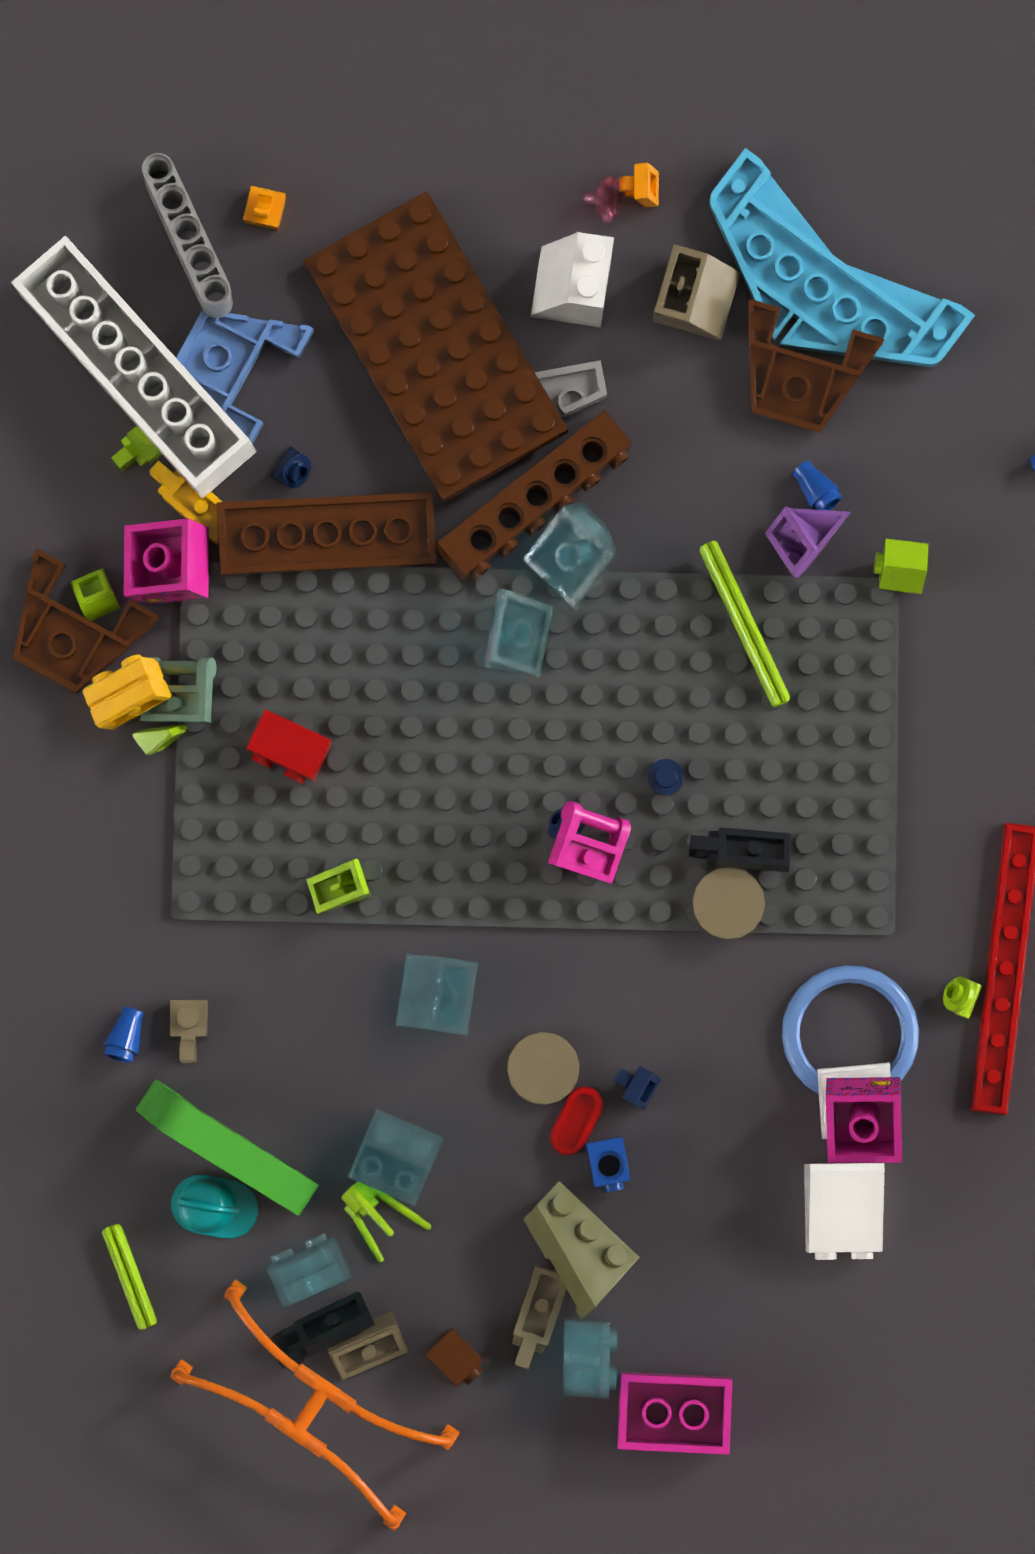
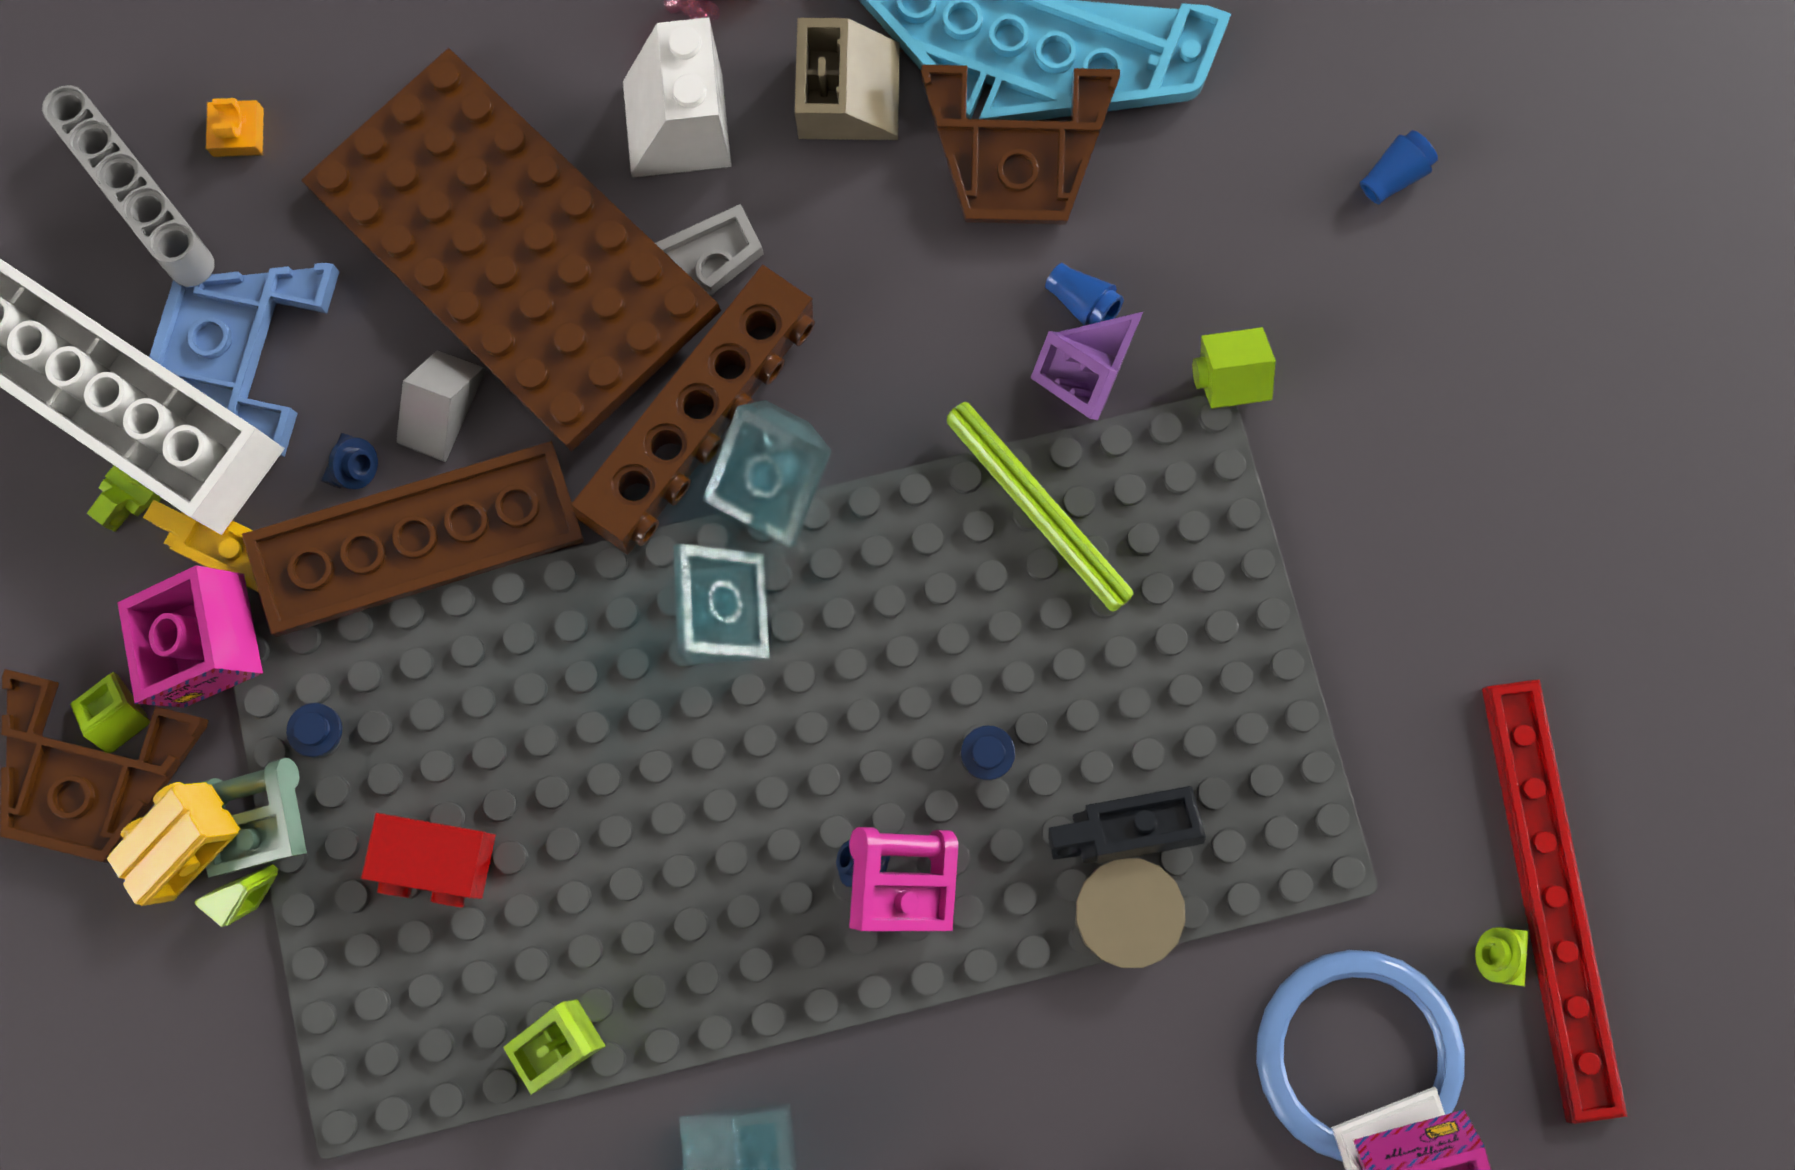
camera: 10 degrees left, 5 degrees down
(232, 643) = (314, 730): none -> dark blue plate
(360, 444) = (436, 404): none -> light grey slope

